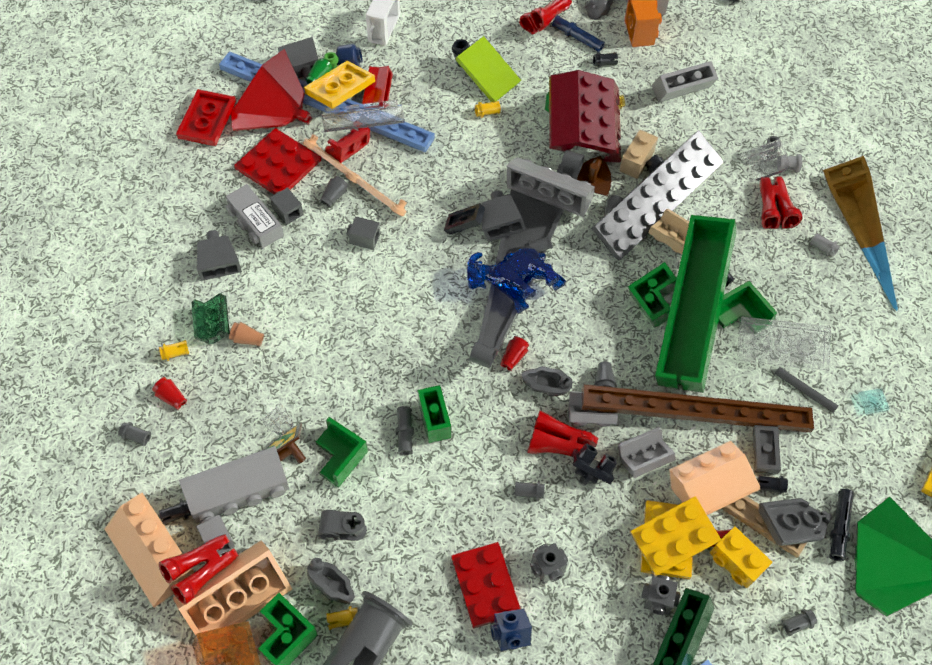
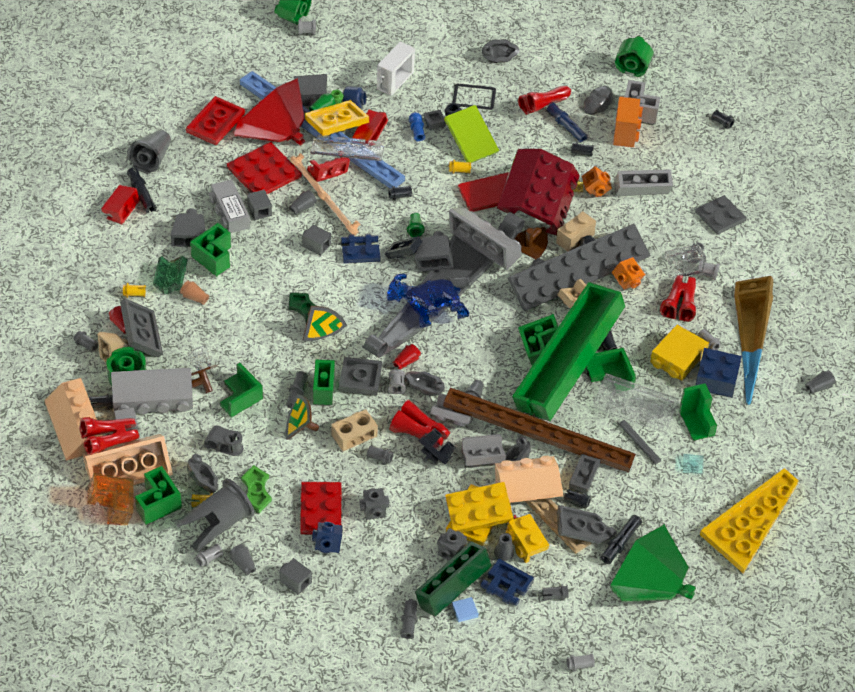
camera: 15 degrees right, 10 degrees down
(127, 244) = (121, 203): none -> red hinge
(142, 172) = (149, 151): none -> dark grey cone
(142, 215) = (139, 183): none -> black pin
(170, 436) = (108, 343): none -> tan slope
(193, 455) = (125, 360): none -> green brick
(197, 400) = (141, 328): none -> dark grey plate
(248, 275) = (212, 249): none -> green brick
(373, 316) = (300, 303): none -> dark green tile
(404, 590) = (255, 481): none -> bright green tile
(406, 337) = (322, 323): none -> shield
(417, 236) = (360, 253): none -> dark blue plate
(421, 469) = (300, 417): none -> shield
(426, 73) = (417, 126): none -> blue pin
(434, 153) = (399, 192): none -> black pin
(441, 61) = (434, 119): none -> dark grey plate
(466, 189) = (415, 225): none -> green cone
(468, 16) = (475, 86): none -> black piece
(471, 392) = (360, 376): none -> dark grey plate
(493, 469) = (354, 430): none -> tan brick
(515, 388) = (396, 382): none -> light grey bush
(524, 130) = (483, 192): none -> red tile
(637, 92) = (596, 182): none -> orange brick
(688, 440) = (521, 450): none -> dark grey arm
(713, 189) = (628, 274): none -> orange brick
(719, 579) = (504, 547): none -> dark grey cone
(743, 617) = (510, 577): none -> dark blue plate
(772, 98) = (720, 214): none -> dark grey plate
(803, 269) = (678, 352): none -> yellow brick
(854, 282) = (719, 371): none -> dark blue brick
(855, 338) = (696, 412): none -> green panel

